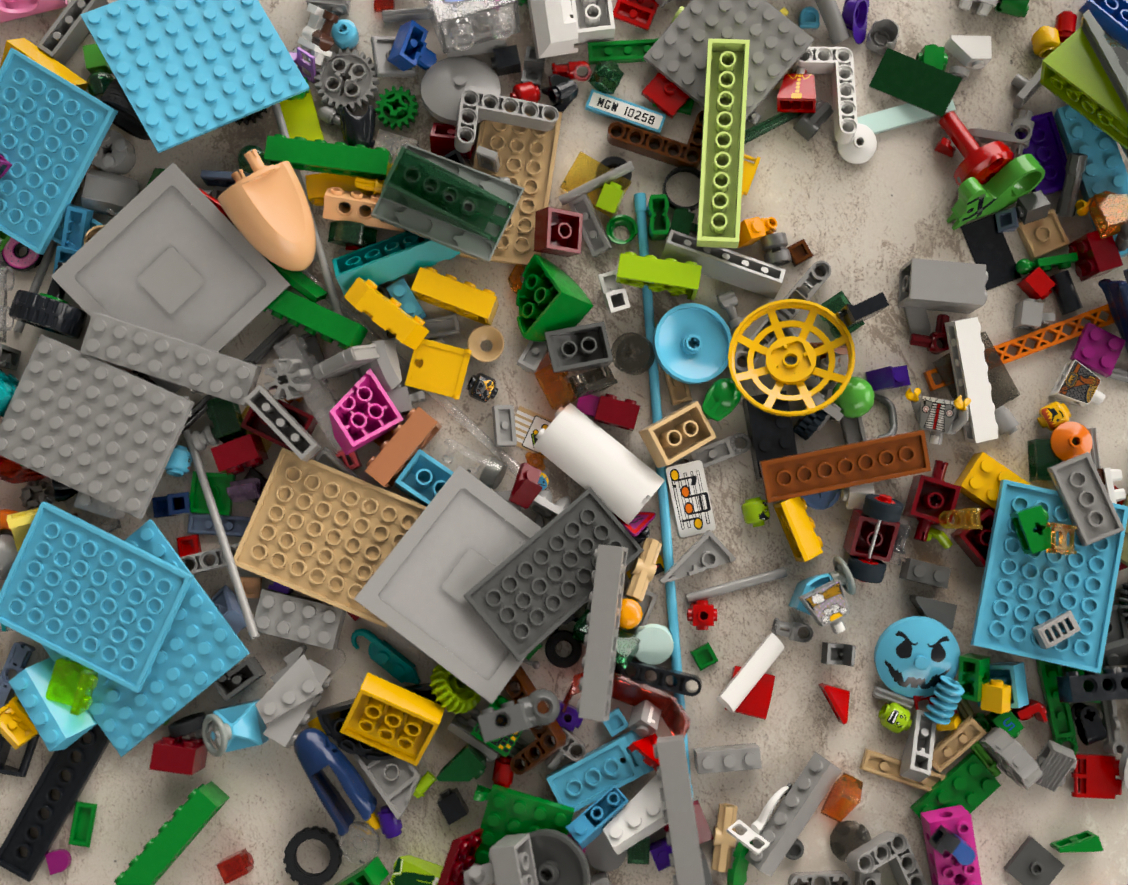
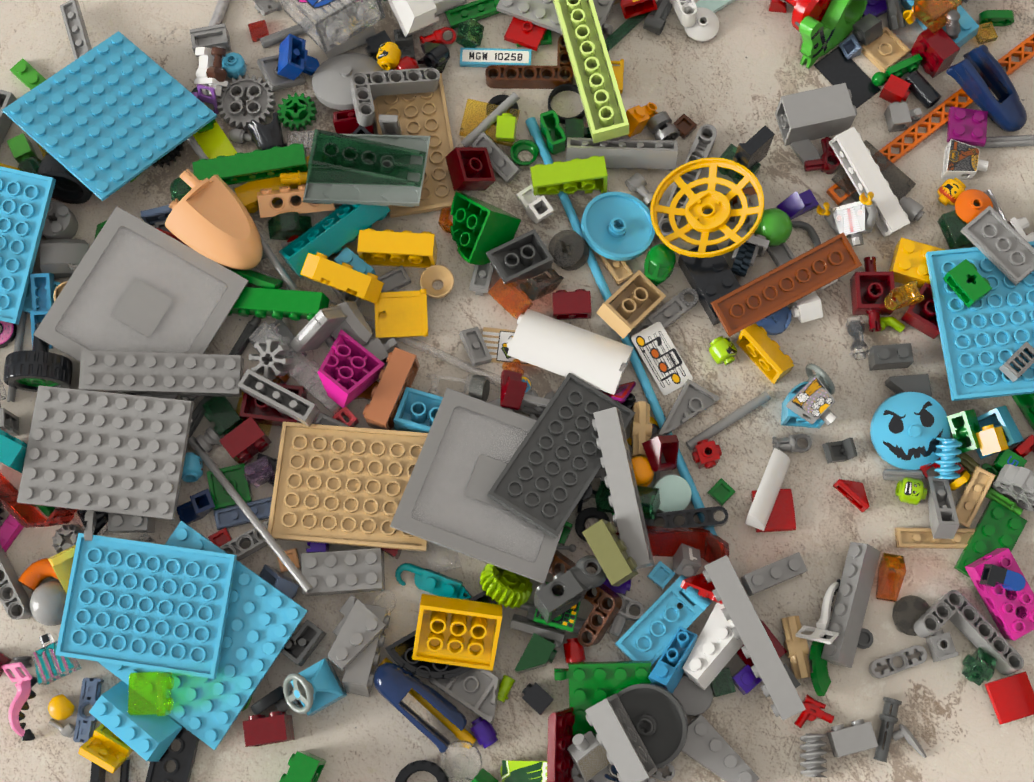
camera: 10 degrees left, 10 degrees down
(57, 492) = (90, 517): none -> light grey tile
(482, 387) = (445, 320): head -> none
(511, 76) = (388, 55): none -> yellow head
(567, 697) = (610, 552): none -> olive brick
(588, 405) = (544, 306): dark pink tile -> none
(648, 598) = (662, 444): none -> dark red tile
(872, 537) = (832, 337): brick -> none
(1062, 548) = (996, 289): clear orange piece -> none

